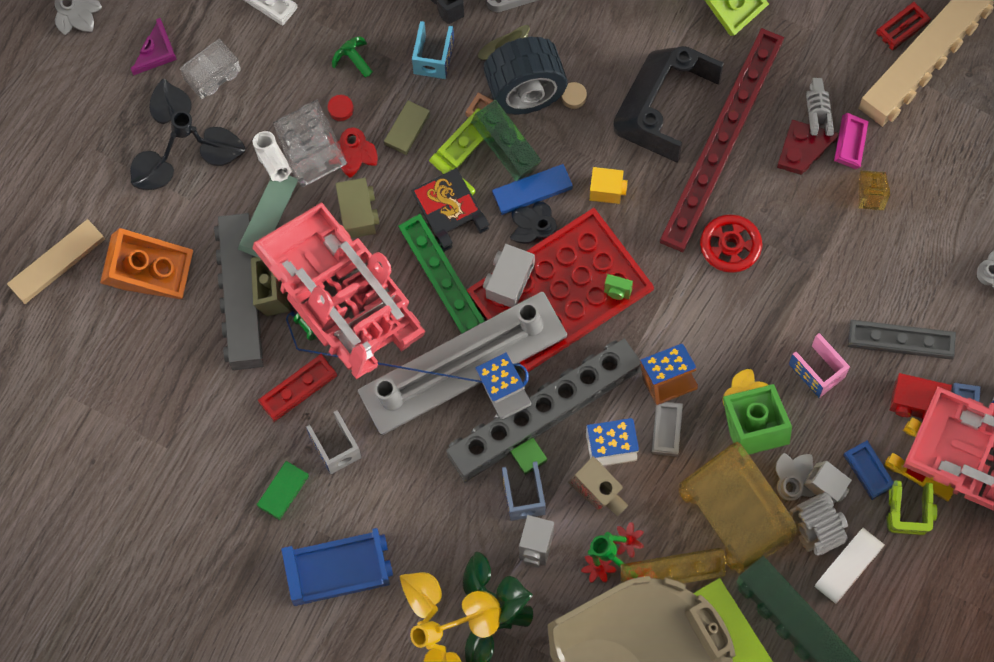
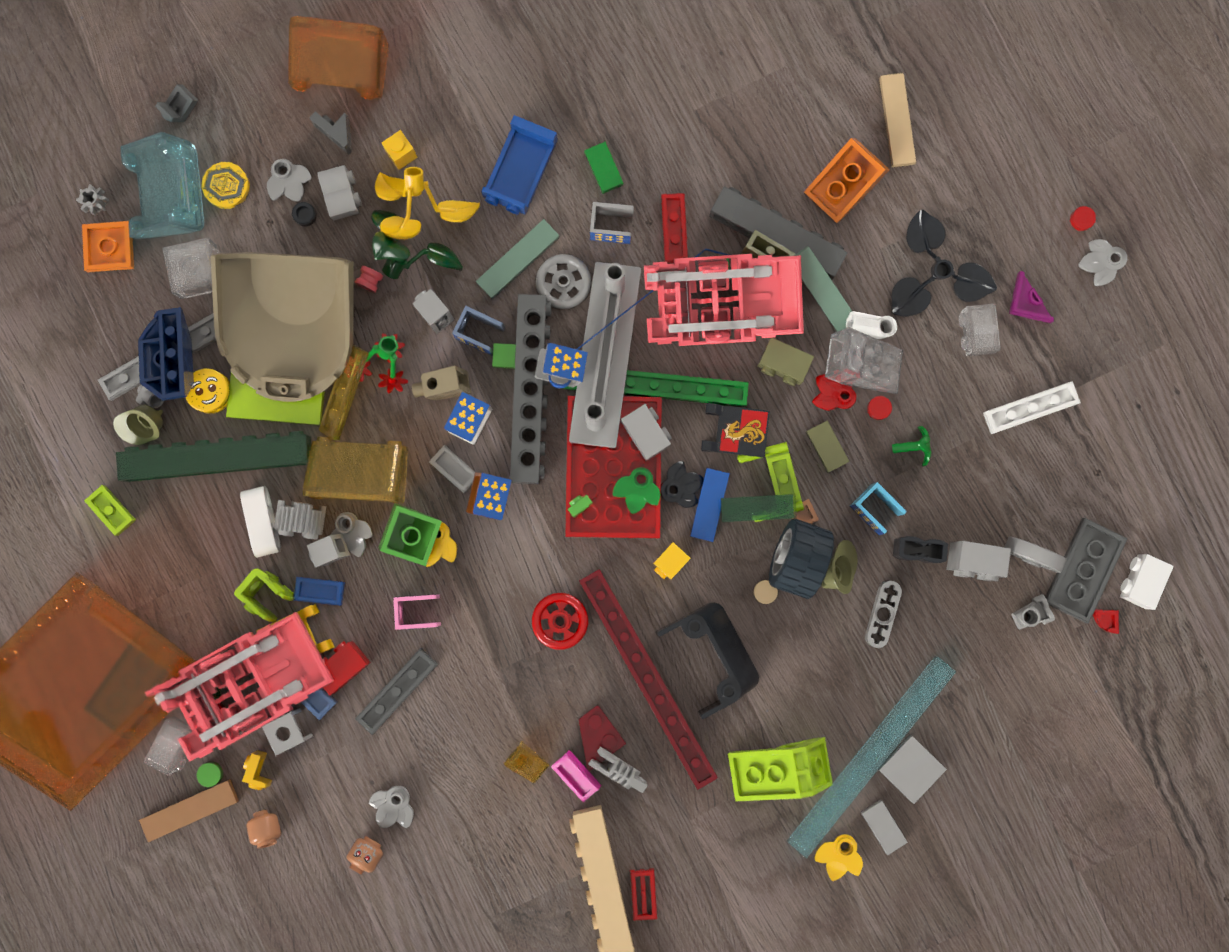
camera: 120 degrees right, 15 degrees up
(46, 52) = (1083, 218): none -> red tile
(413, 473) = (573, 264): none -> light grey plate
(428, 508) = (517, 259): none -> sand green tile
(542, 629) = (368, 279): none -> coral wheel
(569, 249) = (637, 493): none -> green plate

